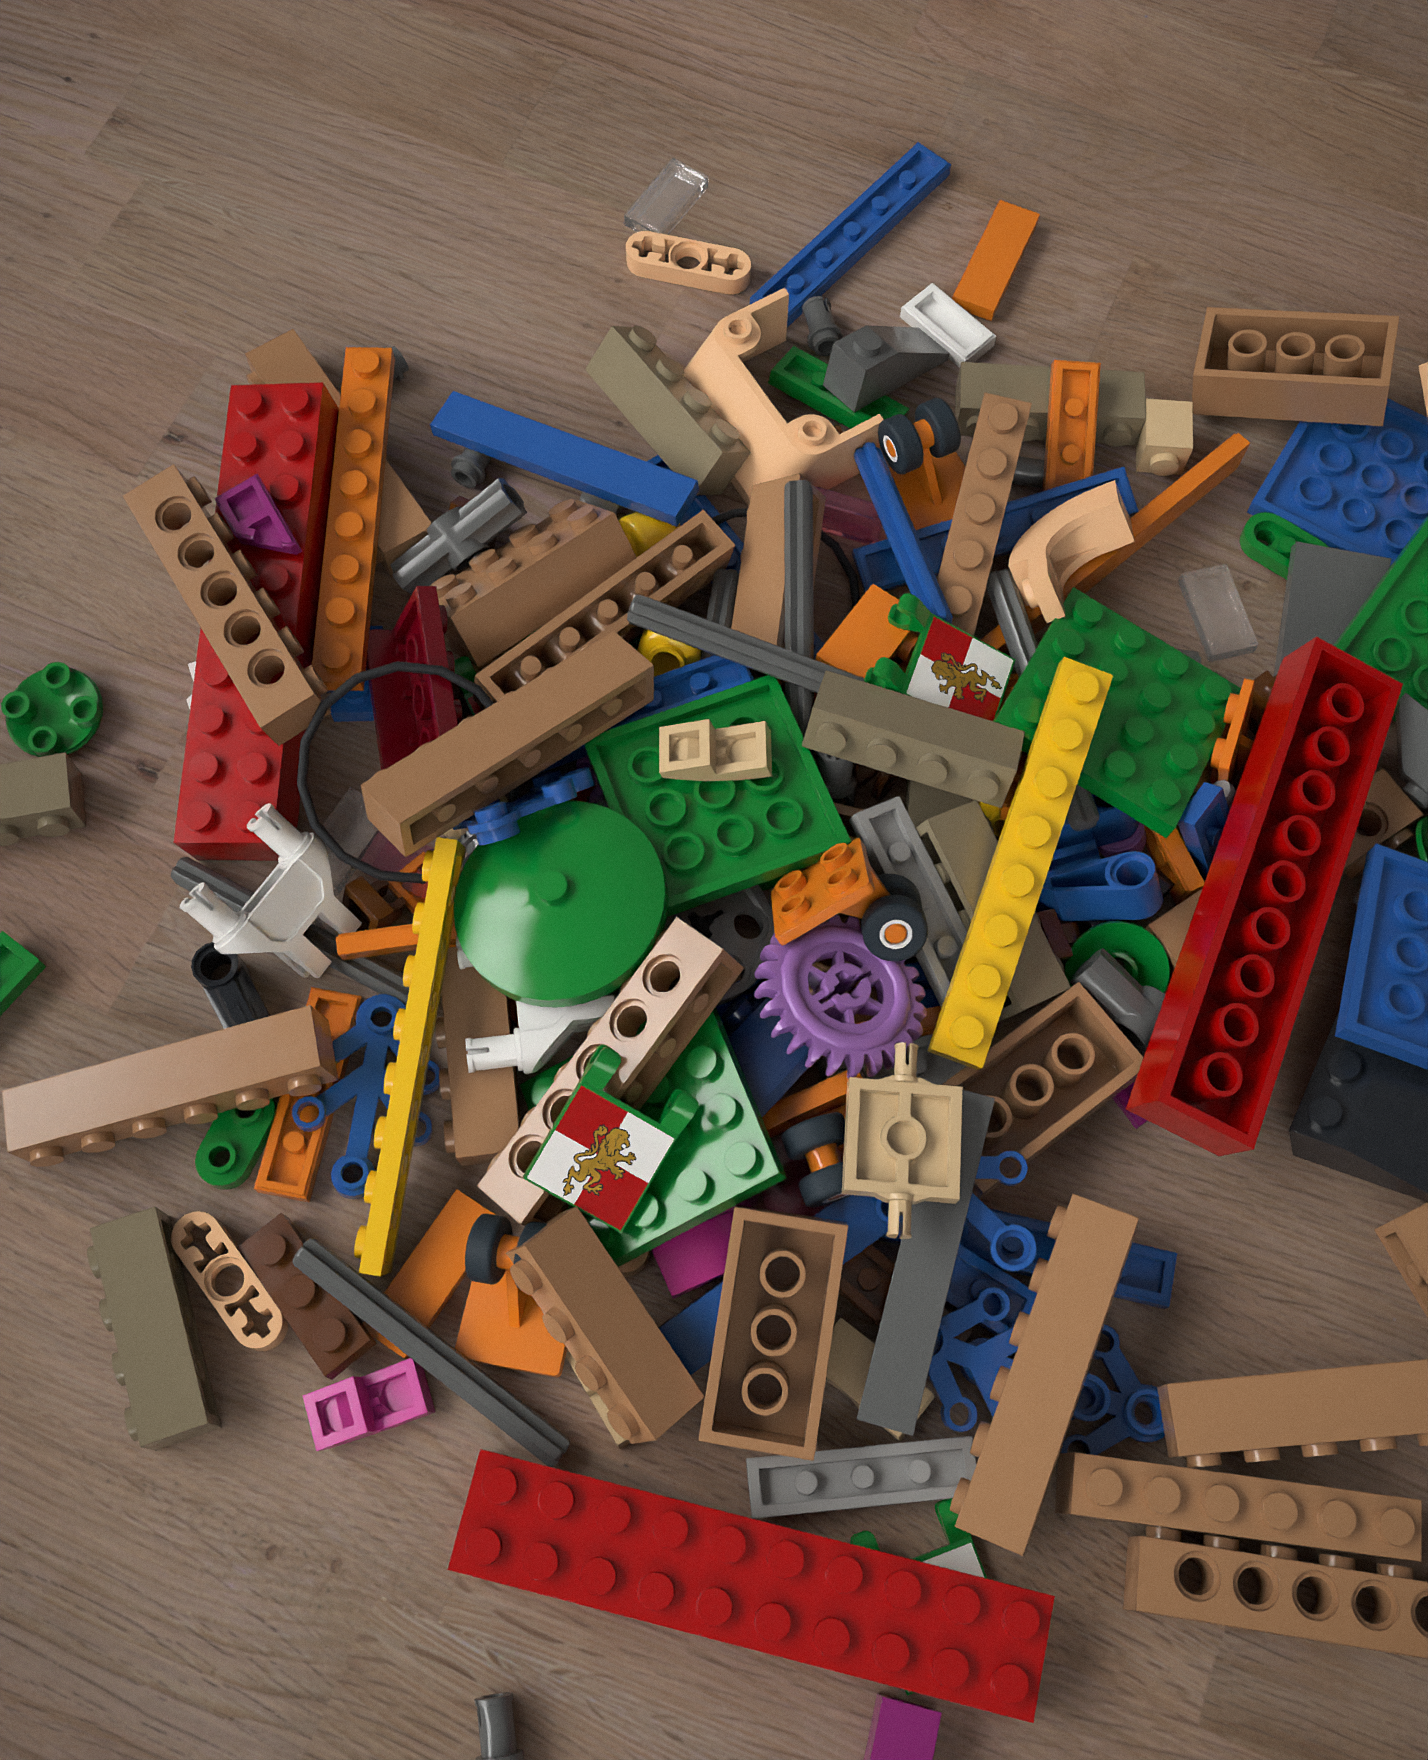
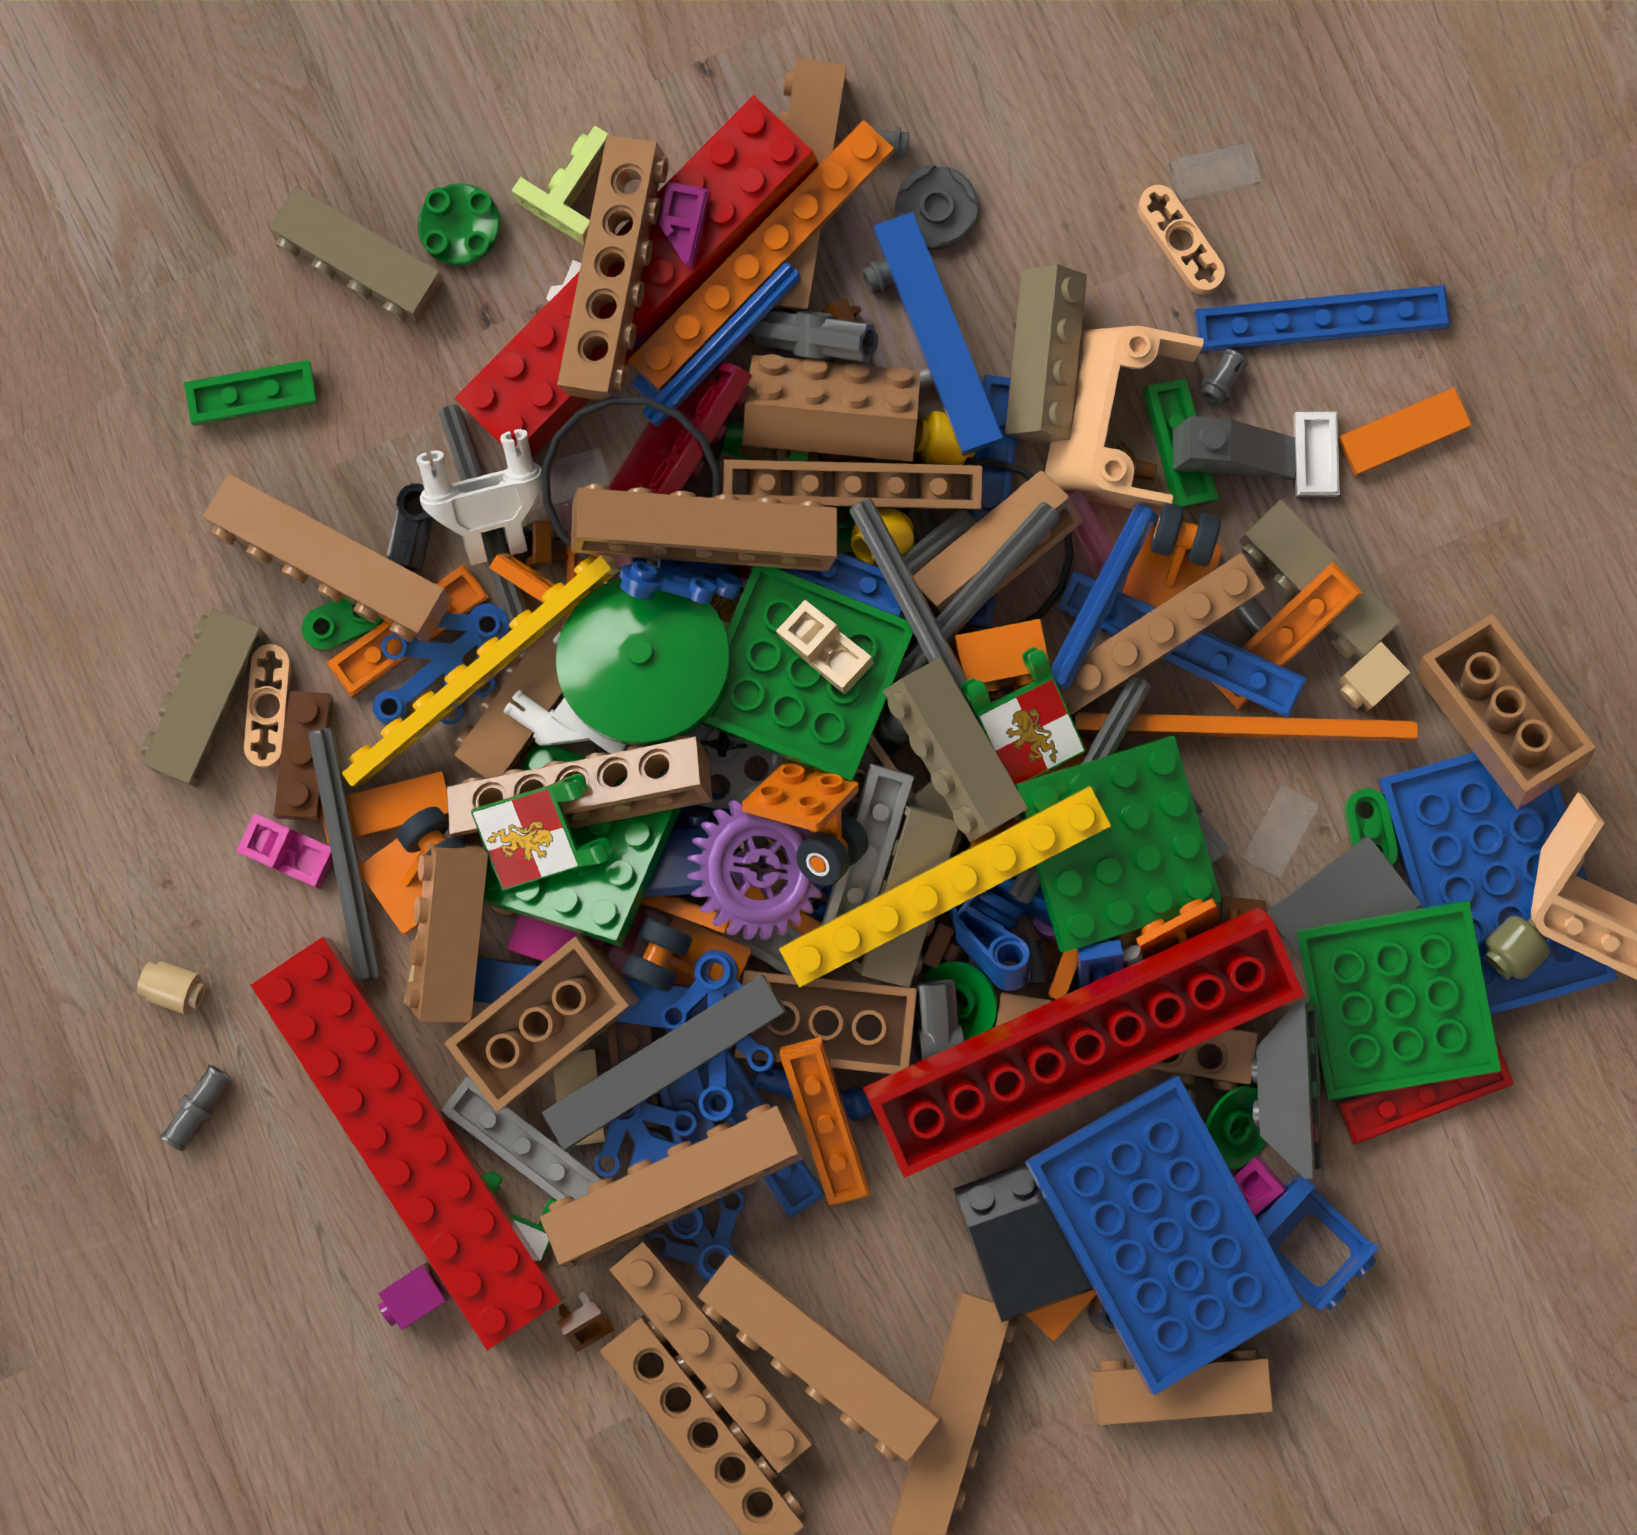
camera: 40 degrees right, 15 degrees up
(131, 626) = (565, 188): none -> yellowish green bracket
(364, 1655) = (171, 987): none -> tan brick
(384, 606) = (724, 341): none -> blue axle
(471, 372) = (941, 203): none -> dark grey tile
(902, 1140) = (703, 987): tan plate -> none
(1064, 542) = (1203, 696): light nougat arch -> none
(1091, 1598) = (584, 1324): none -> reddish brown tile
(1116, 1146) = (776, 1081): none -> blue pin
(1116, 1177) = (825, 1121): none -> orange tile

